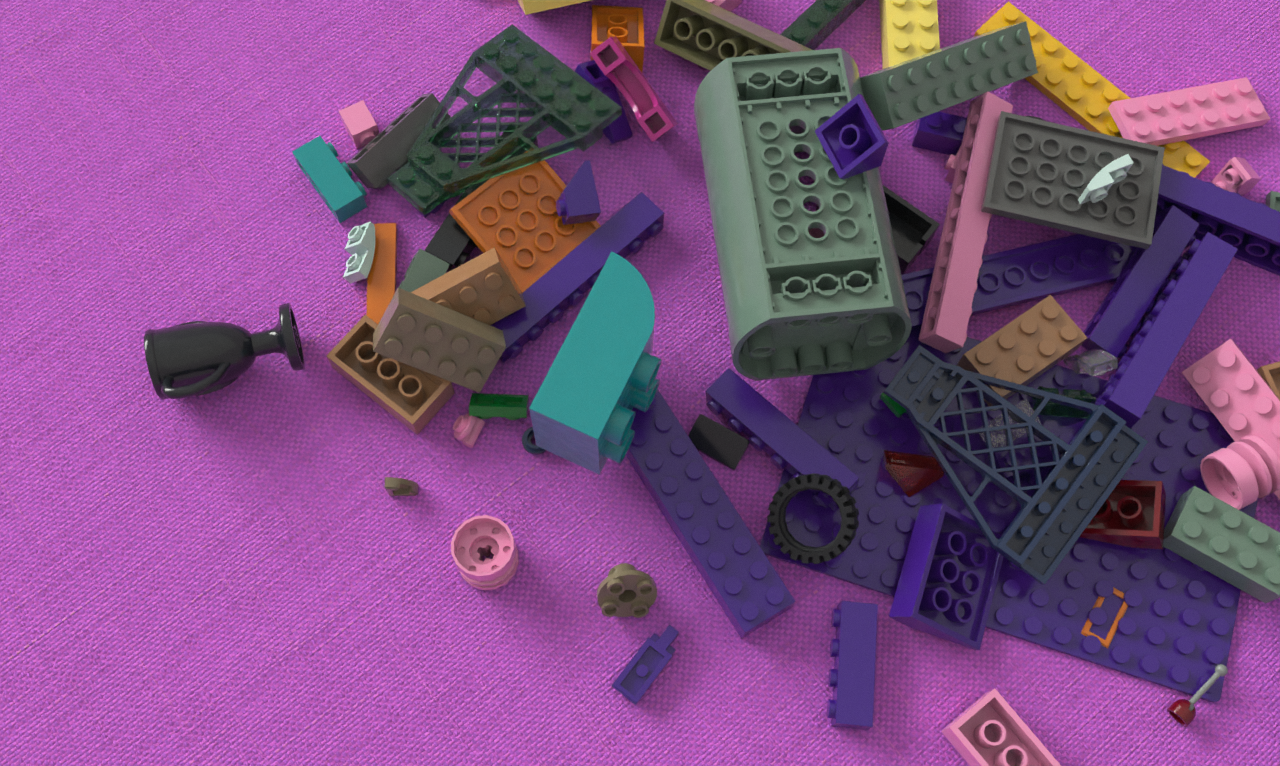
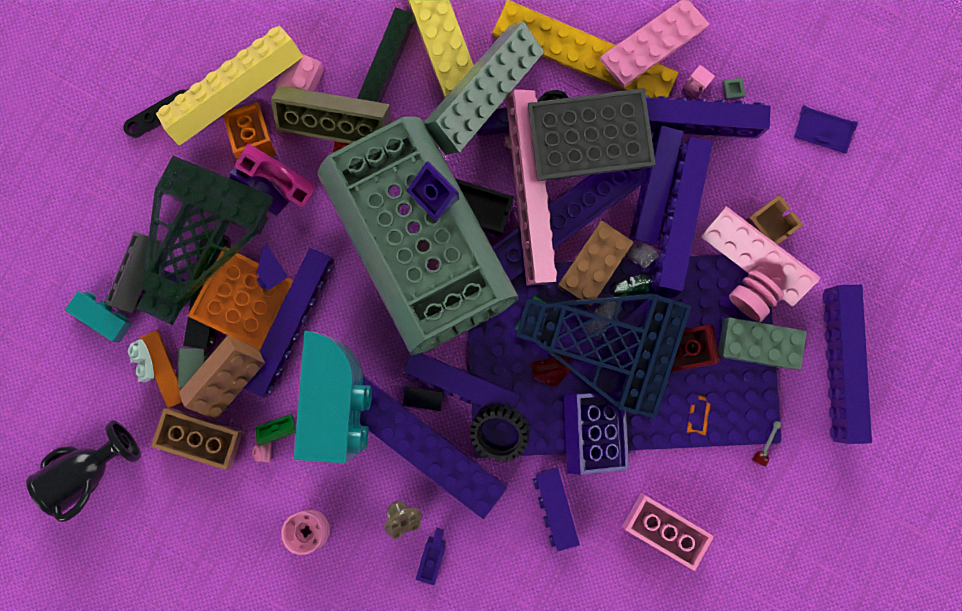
camera: 20 degrees left, 15 degrees up
(359, 124) = (101, 269): bright pink brick -> none
(400, 487) = (236, 507): dark tan tile -> none
(438, 340) = (218, 412): dark tan brick -> none
(1105, 178) = (610, 135): light aqua slope -> none

